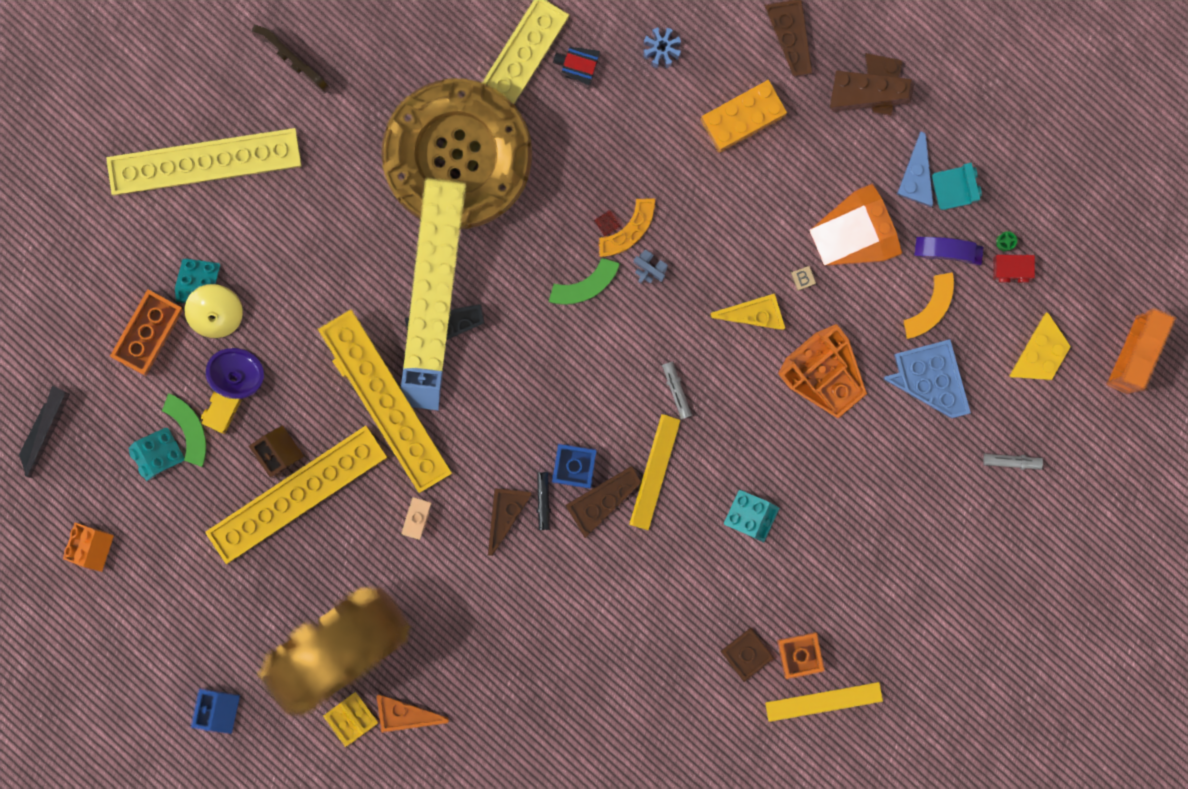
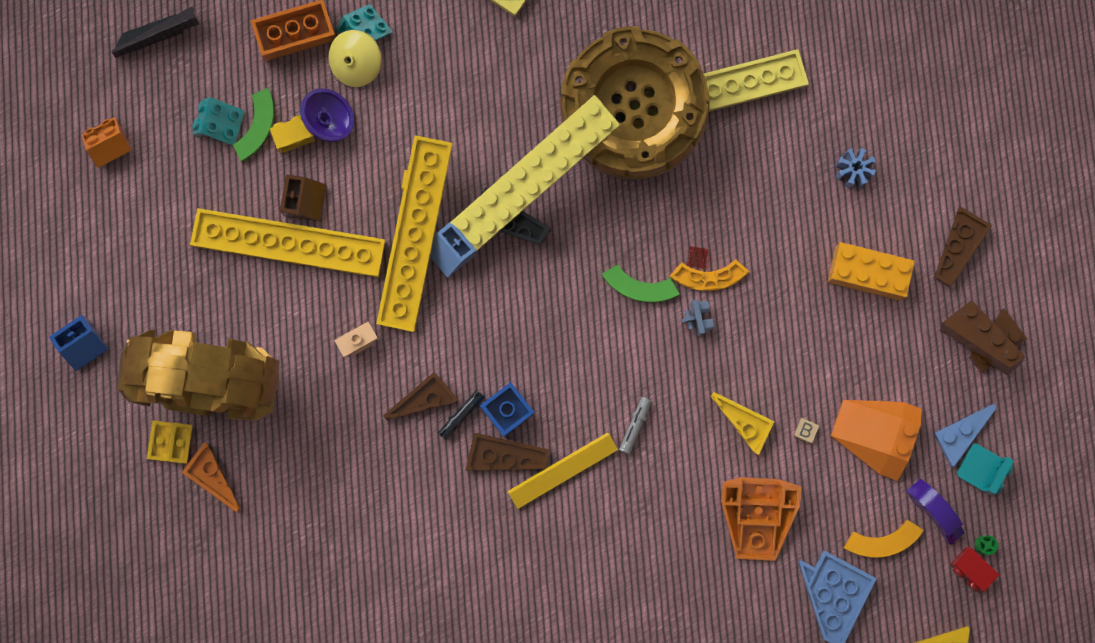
camera: 40 degrees right, 5 degrees down
(578, 65) = (782, 125): torso -> none
(751, 515) = (604, 570): teal bracket -> none

